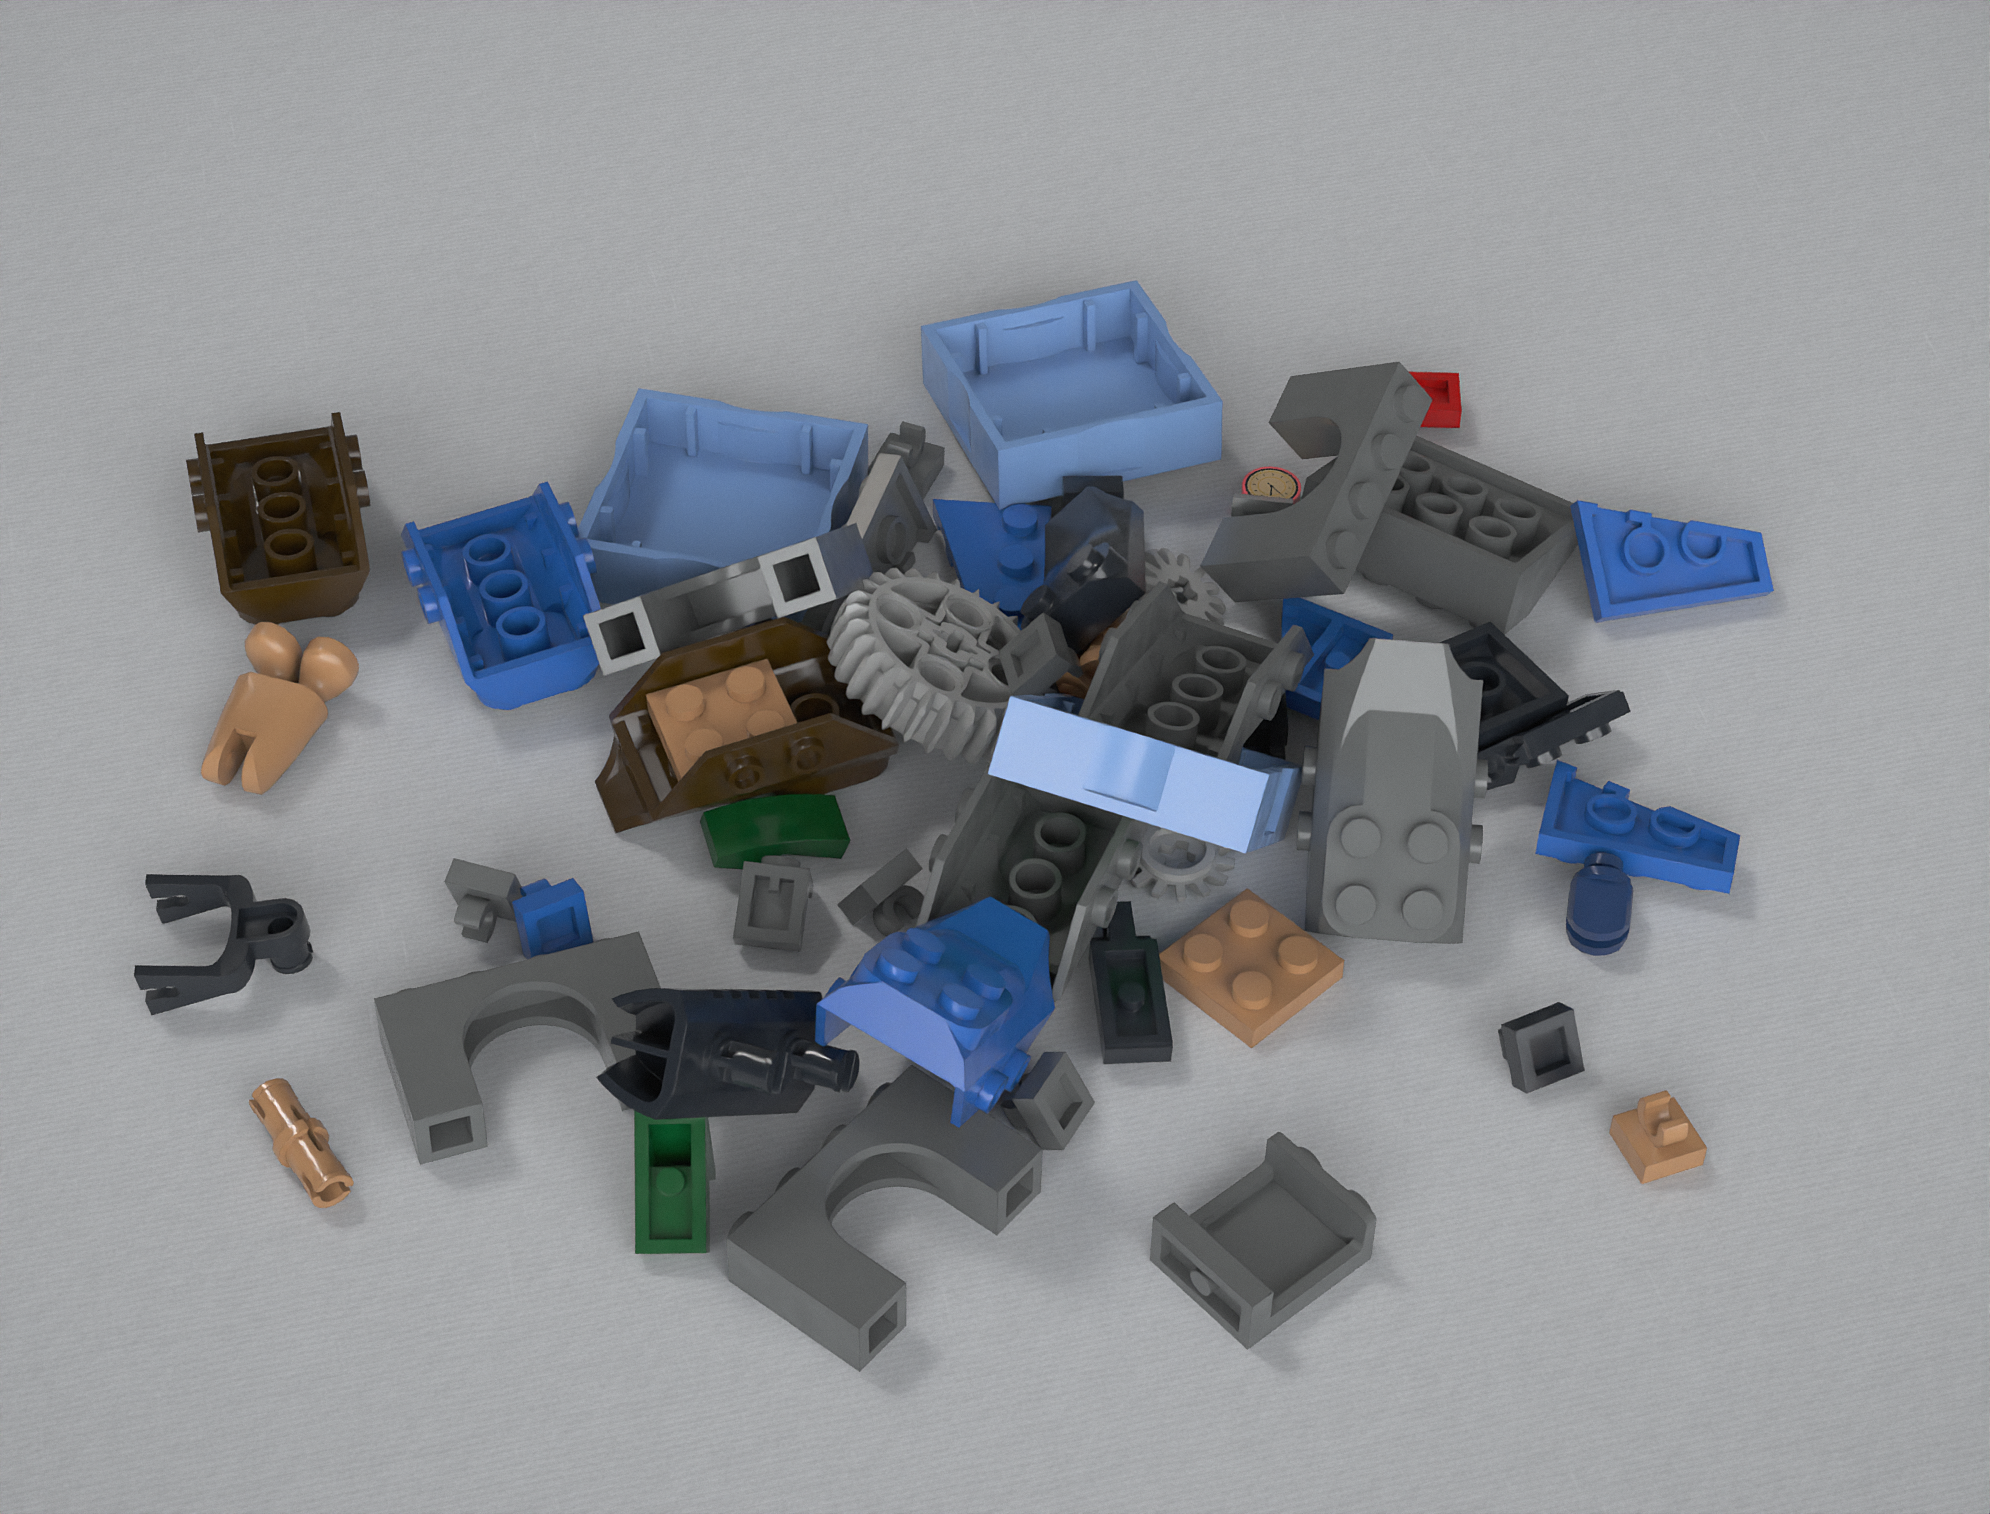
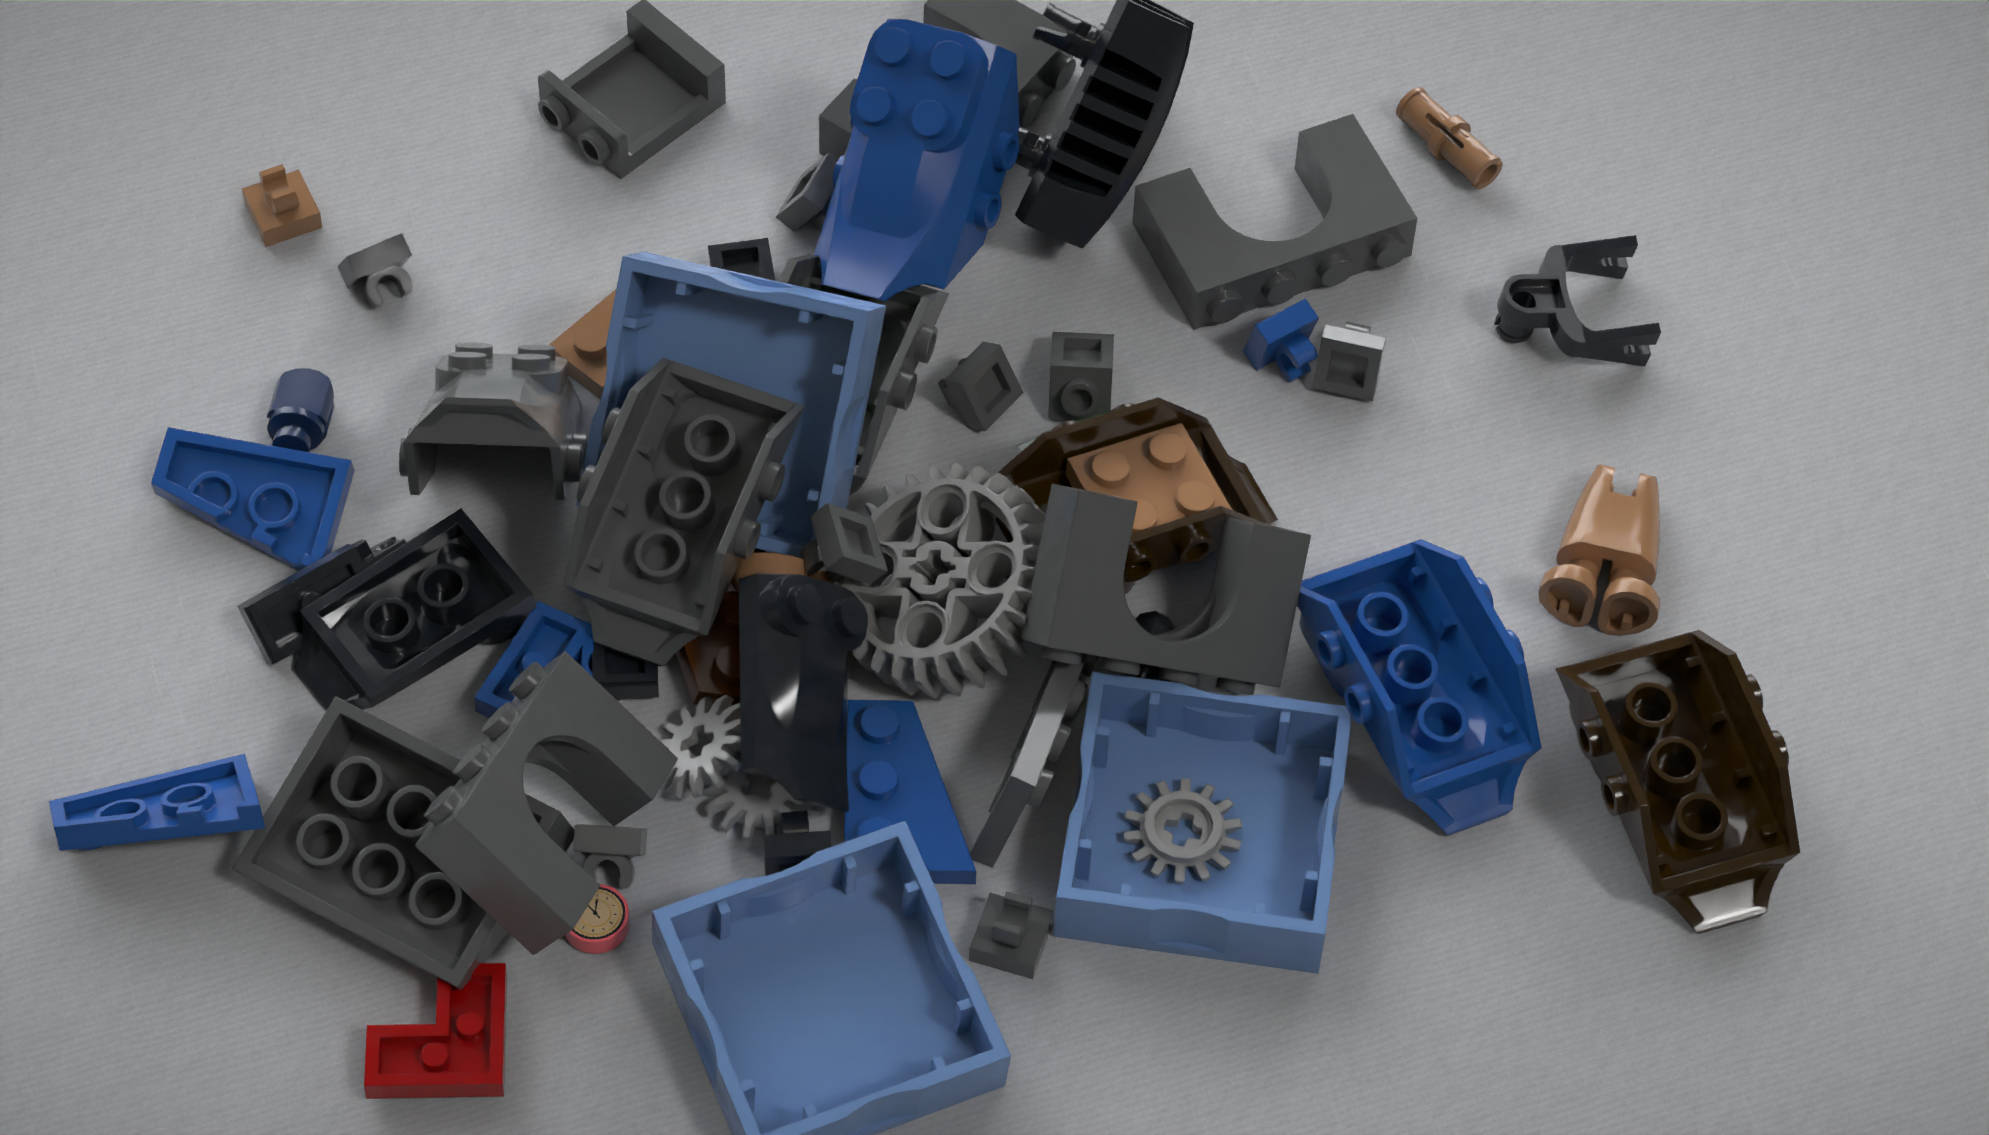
camera: 175 degrees right, 10 degrees up
(767, 516) = (1169, 811): none -> light grey gear

